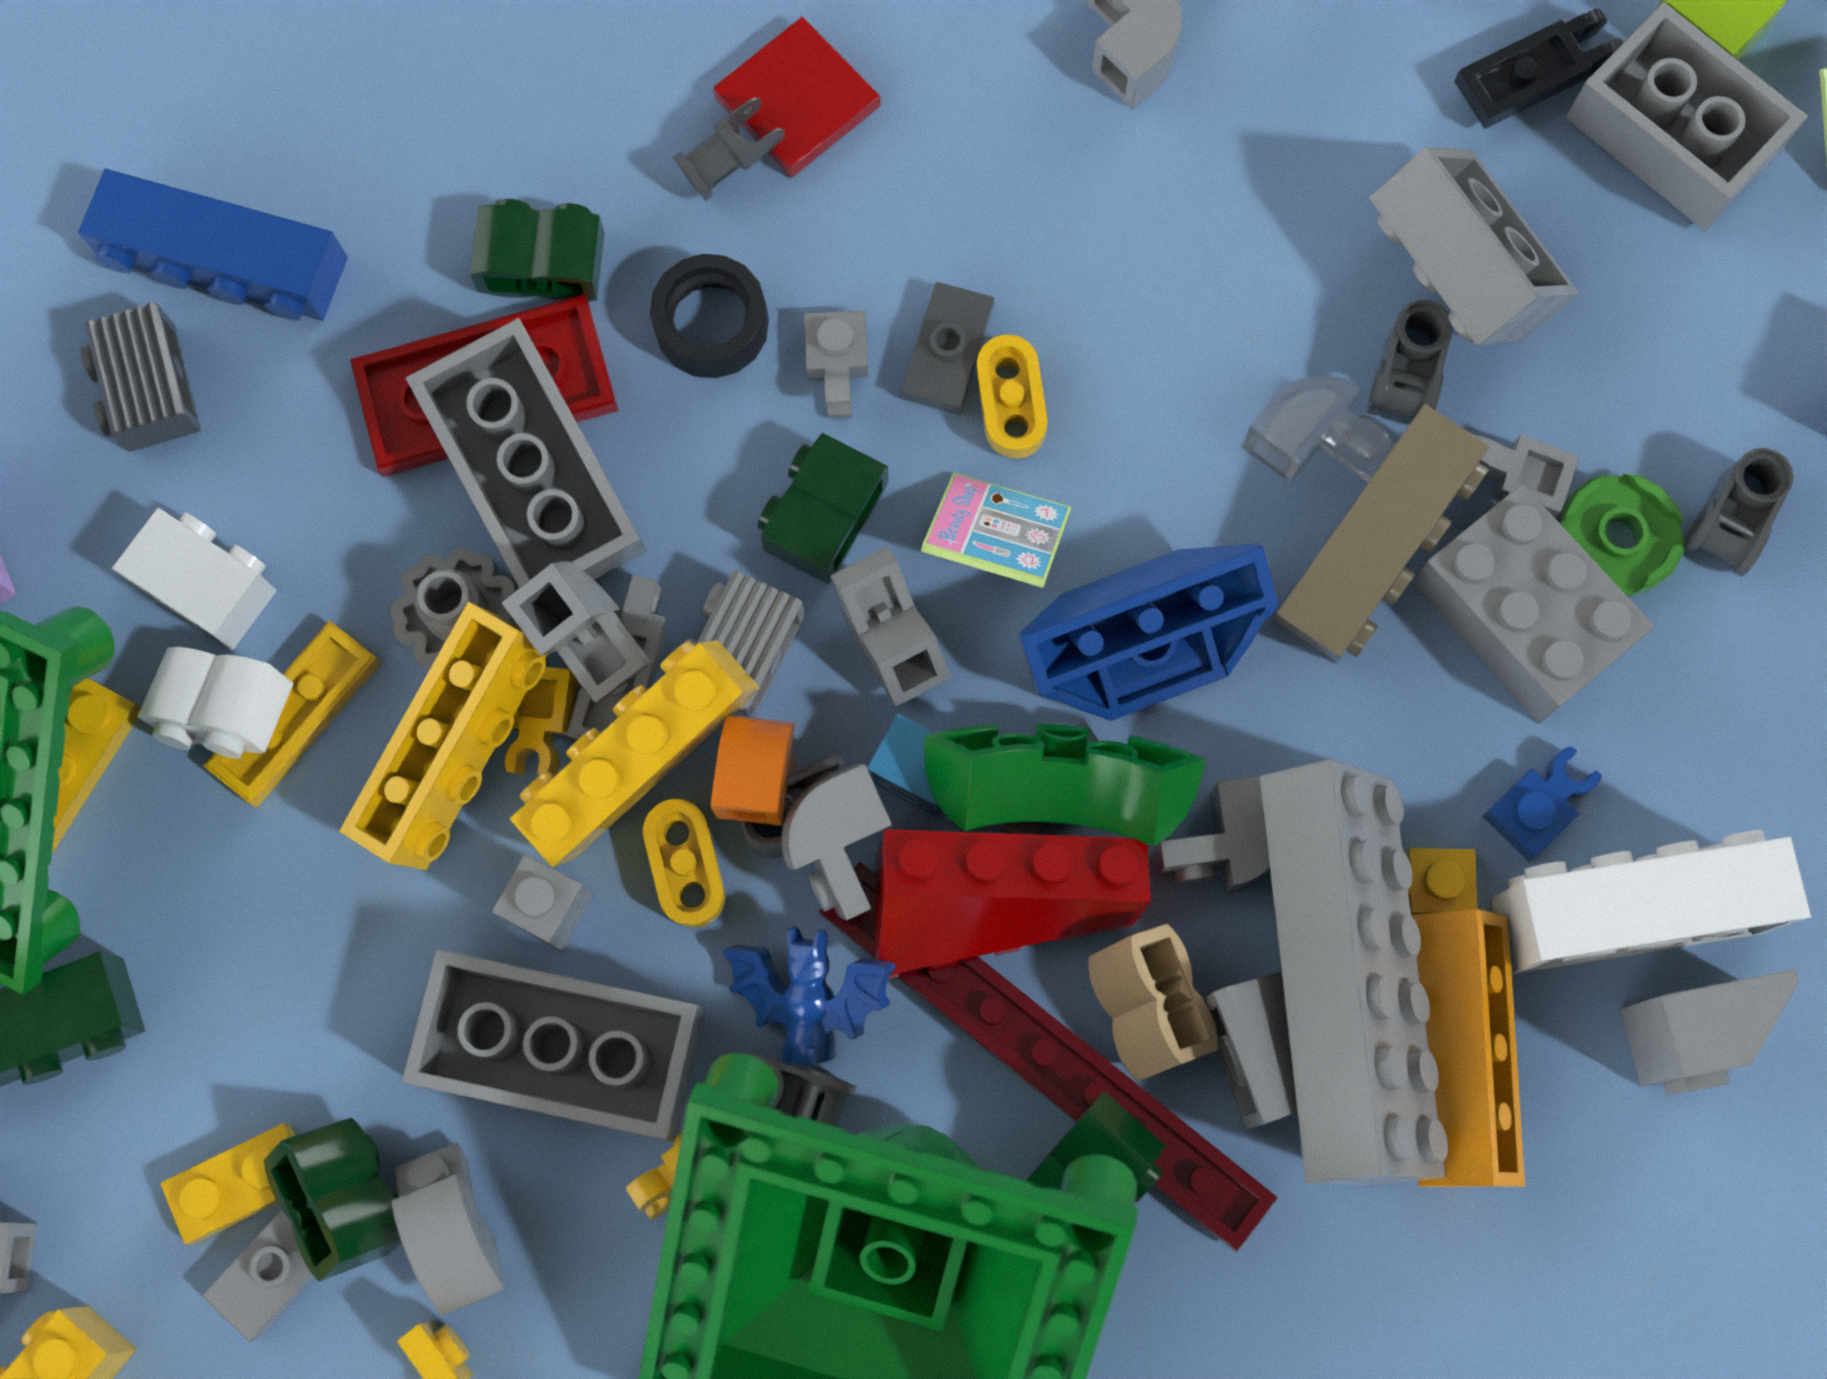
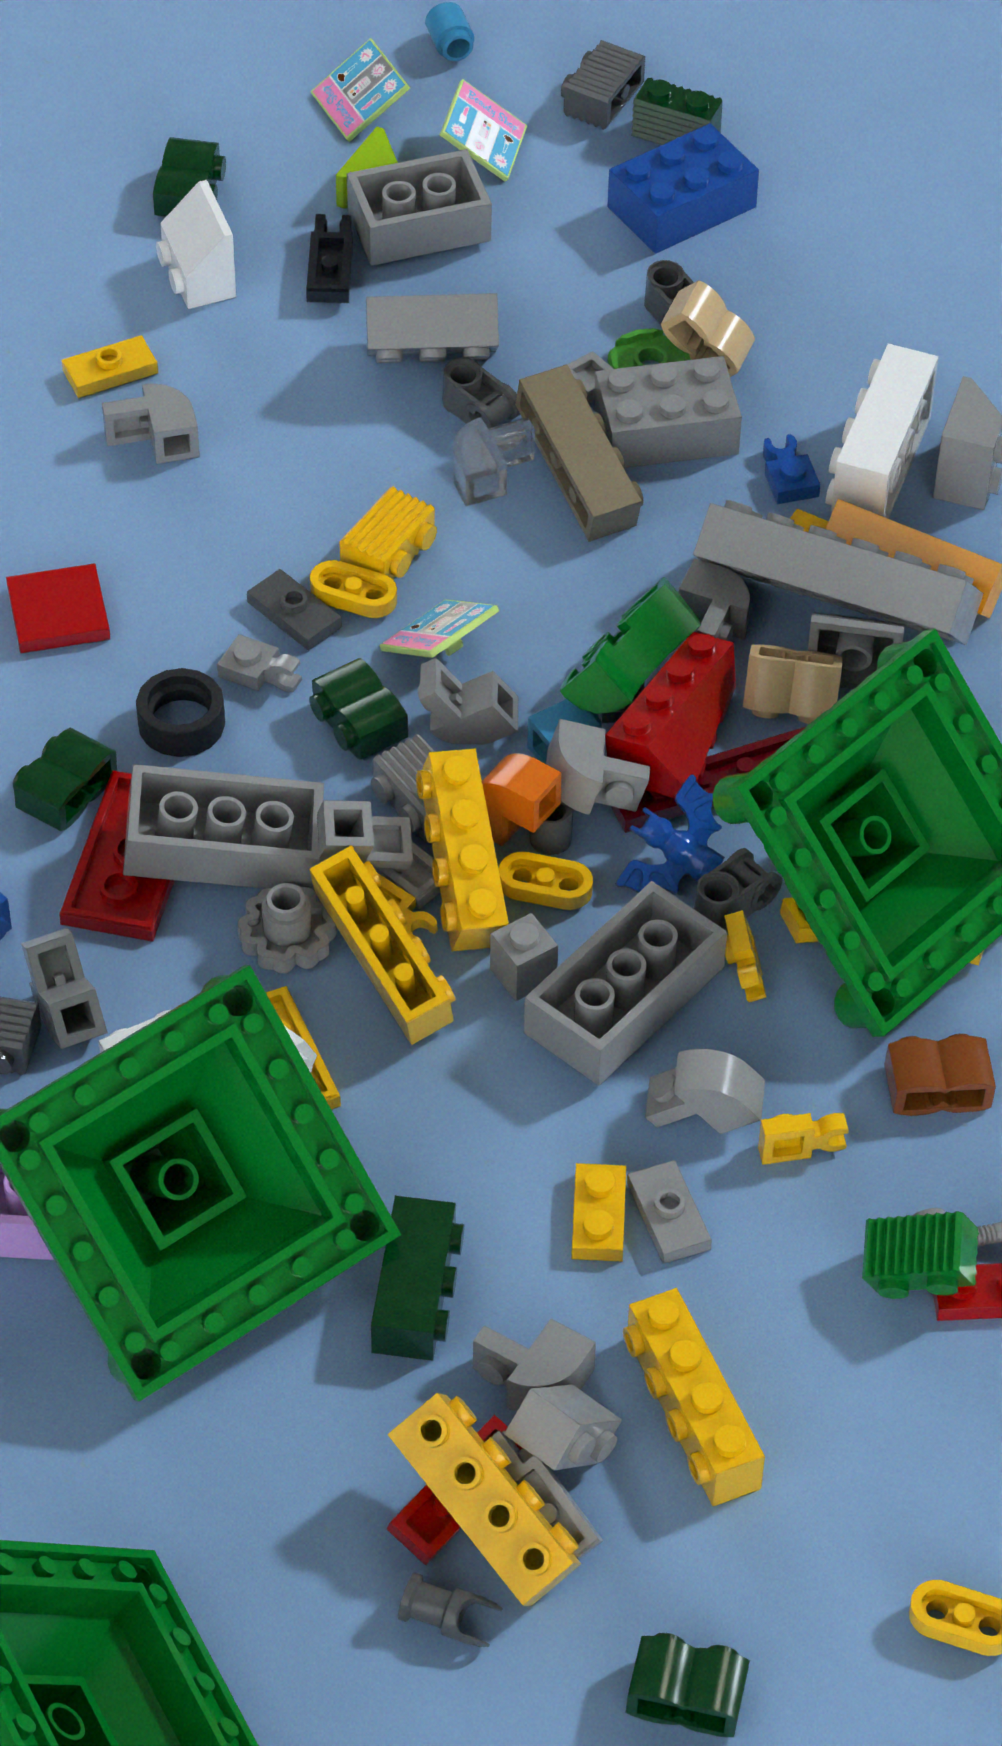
camera: 65 degrees left, 25 degrees down
(225, 436) = (63, 993): none -> light grey brick
(334, 1197) = (633, 1138): dark green brick -> none
(725, 150) = (73, 653): dark grey piece -> none
(1114, 391) = (390, 534): none -> yellow brick
(1150, 629) = (559, 577): blue wedge -> none
(1699, 581) = (705, 327): none -> tan brick

